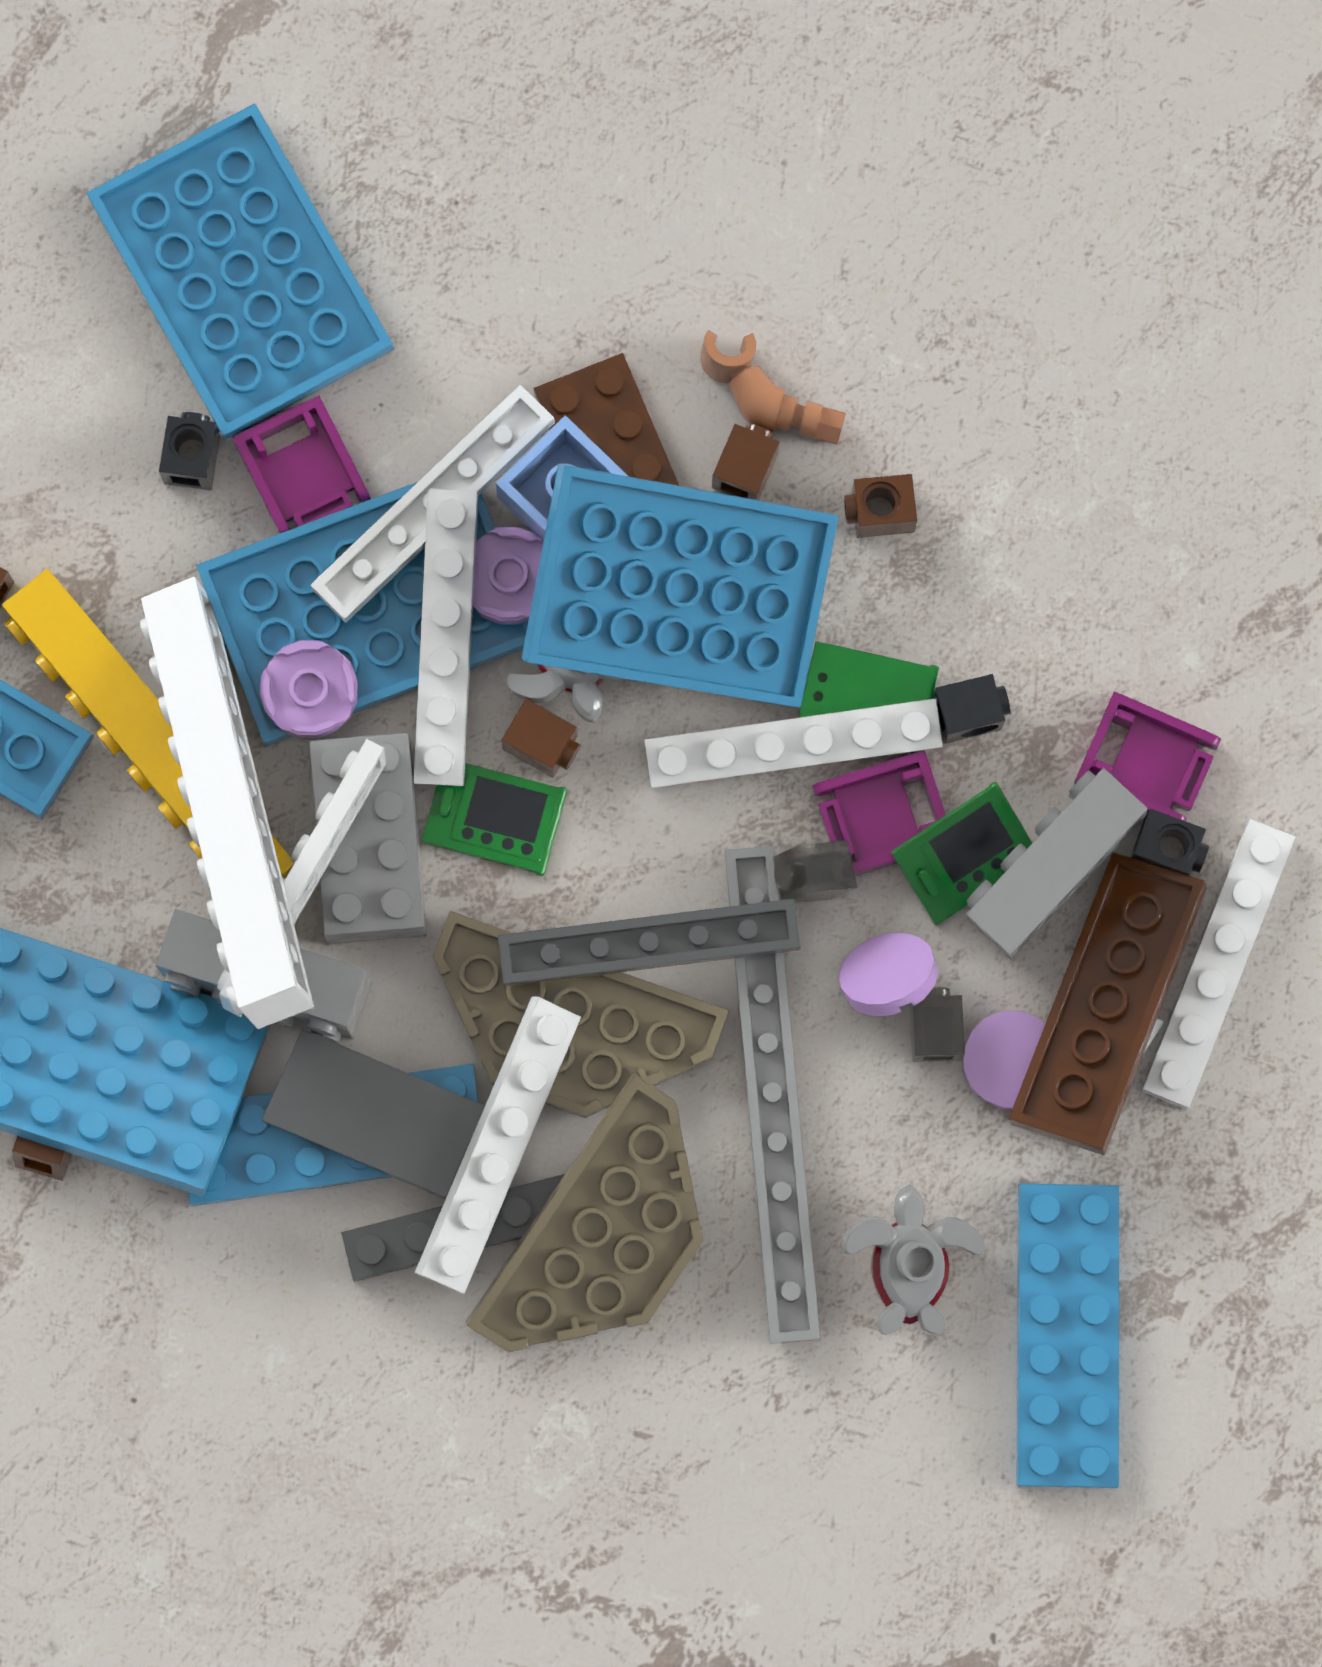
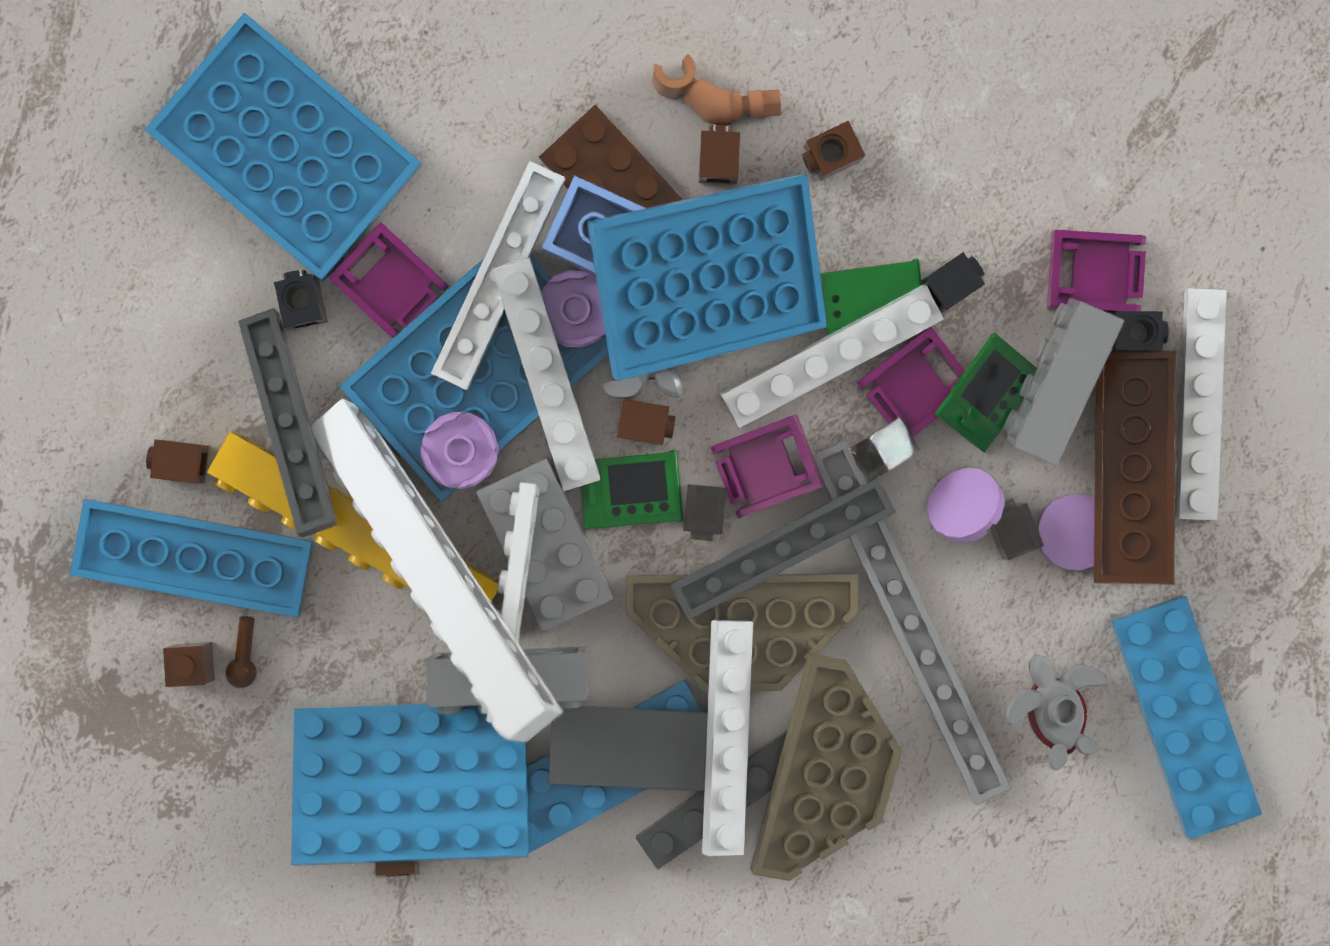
camera: 20 degrees left, 10 degrees up
(120, 582) = (288, 423): none -> dark grey plate
(572, 868) = (704, 511): none -> clear smoke brick
(662, 843) = (762, 468): none -> magenta container

